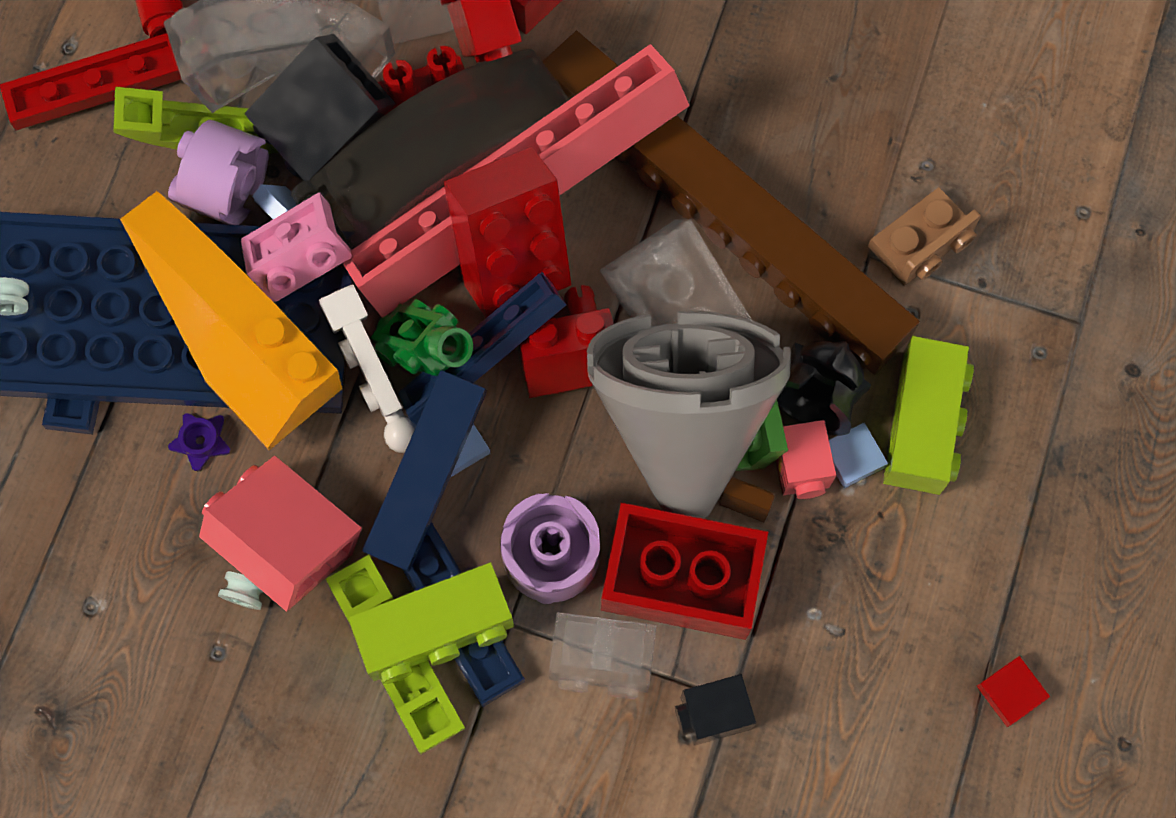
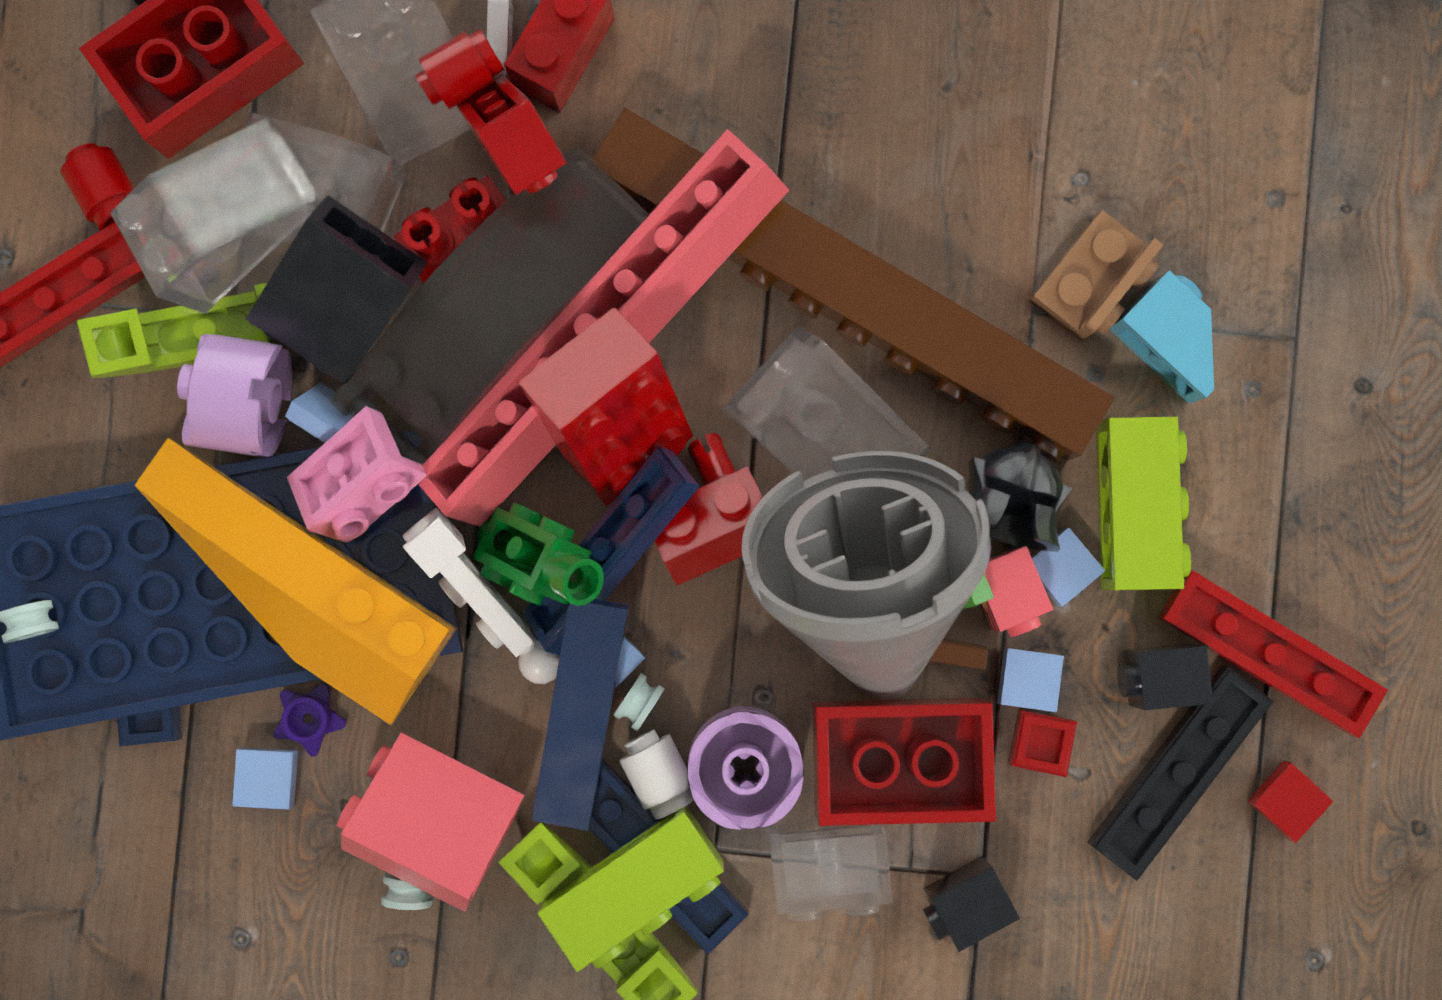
camera: 15 degrees left, 15 degrees up
(151, 477) = (265, 778): none -> light blue tile
(475, 481) = (639, 702): none -> light aqua bush
(475, 537) = (657, 773): none -> white brick
(807, 594) = (1042, 743): none -> red tile
(808, 539) = (1030, 679): none -> light blue tile
(921, 646) = (1179, 773): none -> black tile
(922, 557) = (1165, 676): none -> black brick
(975, 289) = (1172, 335): none -> medium azure slope
(1019, 562) = (1273, 654): none -> red plate

